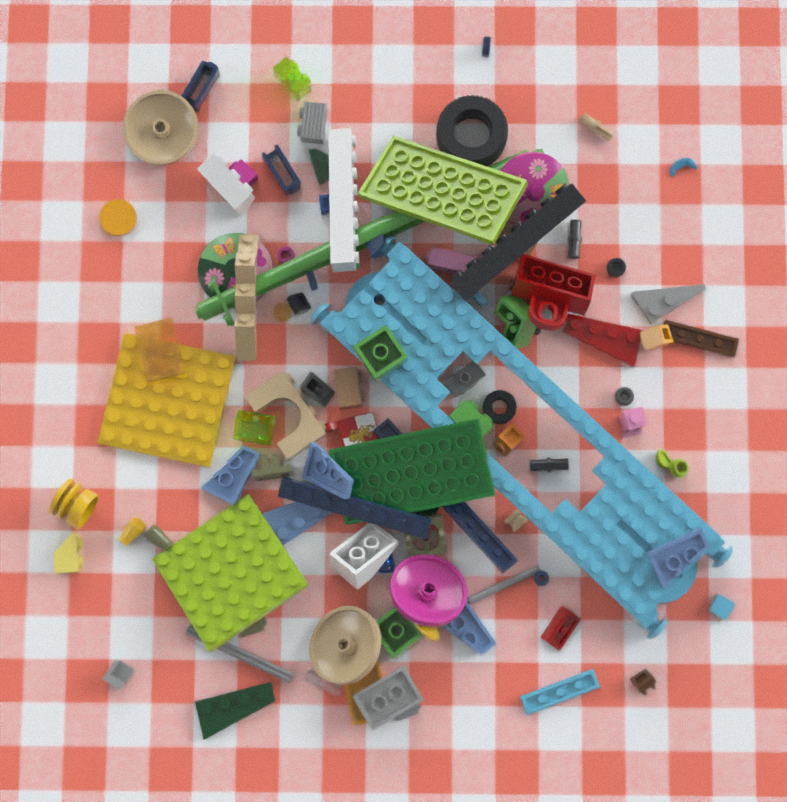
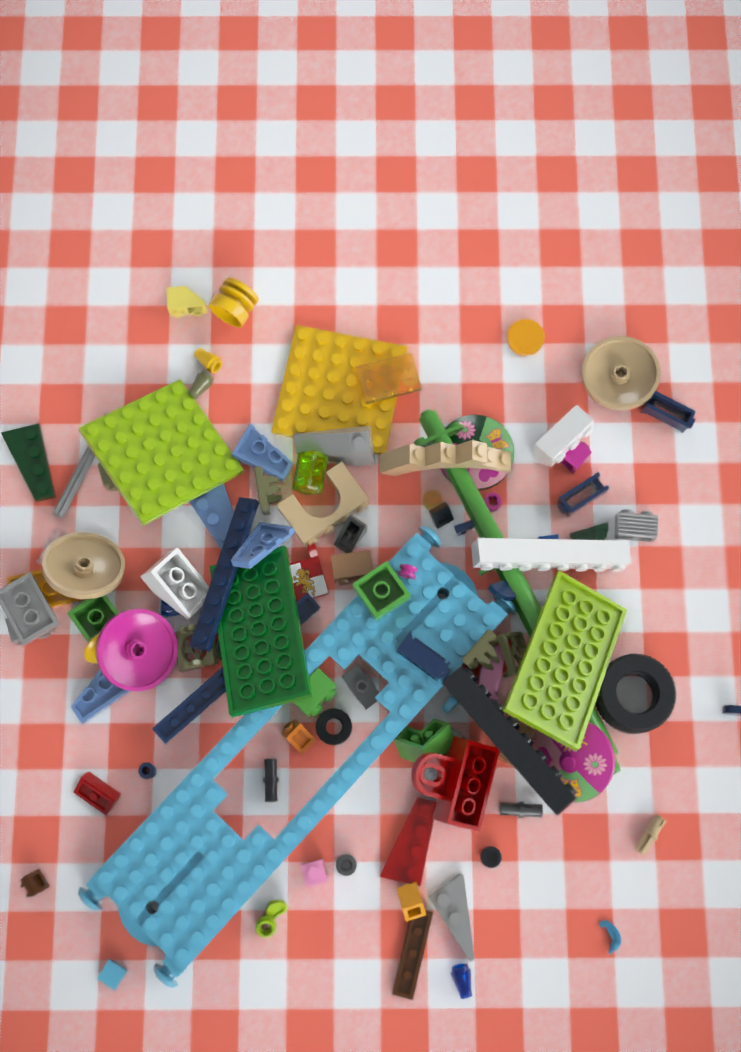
camera: 85 degrees right, 5 degrees down
(118, 674) = (68, 351): light grey panel -> none
(227, 395) = (345, 445): none -> light grey wedge
(292, 79) = (682, 503): clear neon green brick -> none
(360, 330) = (407, 571): none -> dark pink bush
(433, 241) = (517, 641): none -> olive piece
(435, 265) = (482, 652): none -> olive piece
(442, 316) = (423, 657): none -> dark blue window
(504, 584) = (144, 732): light grey bar -> none
(516, 520) = (209, 742): tan wheel -> none
(559, 691) = (30, 792): medium azure tile -> none
(676, 555) = (160, 919): medium blue wing -> none
(719, 295) = (462, 978): none -> clear blue cone

